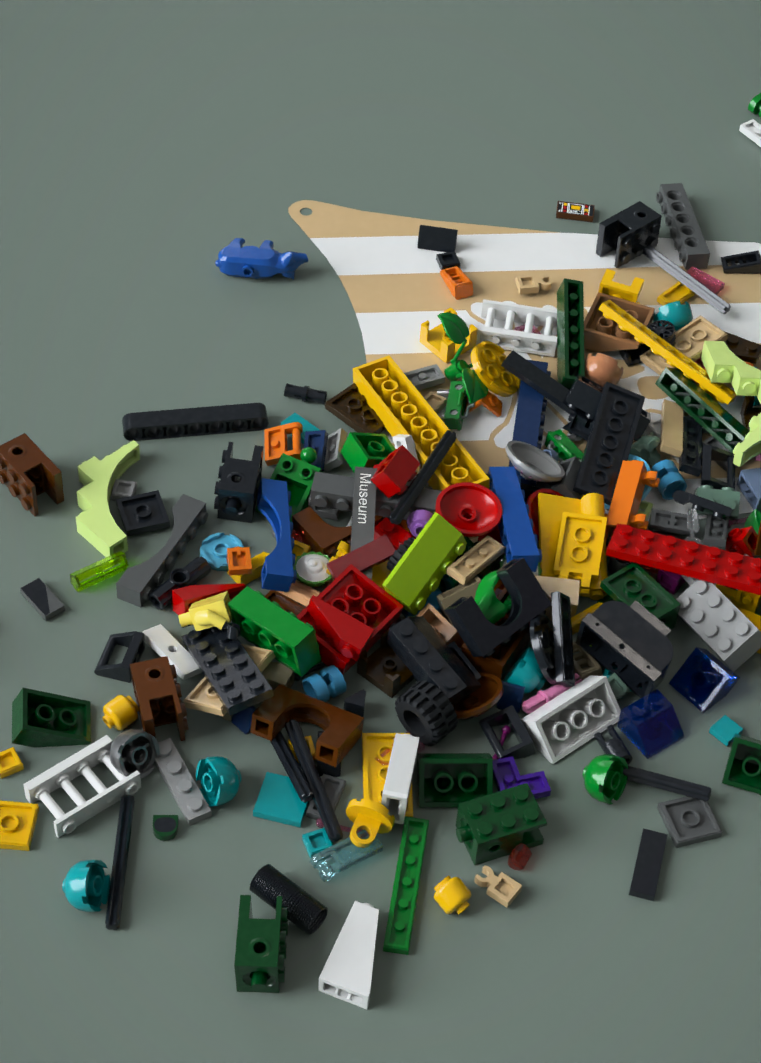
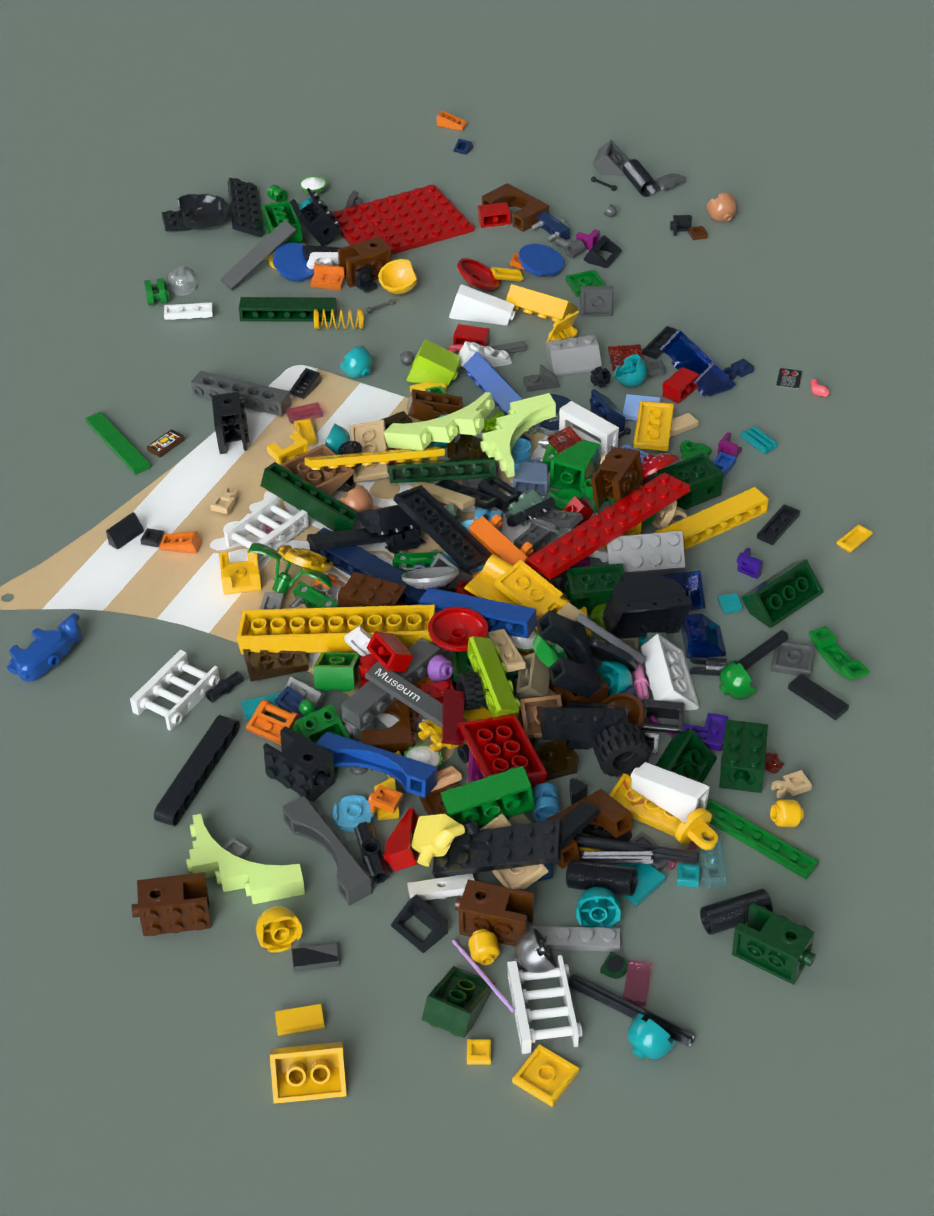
camera: 55 degrees left, 5 degrees down
(48, 555) = (278, 929): none -> yellow cylinder
(86, 732) = (481, 973): none -> lavender piece
(97, 568) = (316, 902): clear neon green piece -> none
(142, 513) = (273, 846): black plate -> none
(156, 853) = (637, 982): none -> clear pink tile
(255, 767) = (616, 878): none -> black piece
(274, 349) = (166, 676): none -> white fence
(293, 710) = (577, 821): none -> black tile
(342, 630) = (530, 753): red slope -> none
(351, 961) = (808, 895): white slope -> none
(422, 477) = (391, 627): black axle -> none
(467, 738) = (652, 740): none -> black slope
(482, 436) = (370, 591): none -> reddish brown torso
(546, 182) = (117, 443): none -> green tile
(686, 279) = (299, 417): axle -> none
(723, 857) = (835, 656): none -> green slope

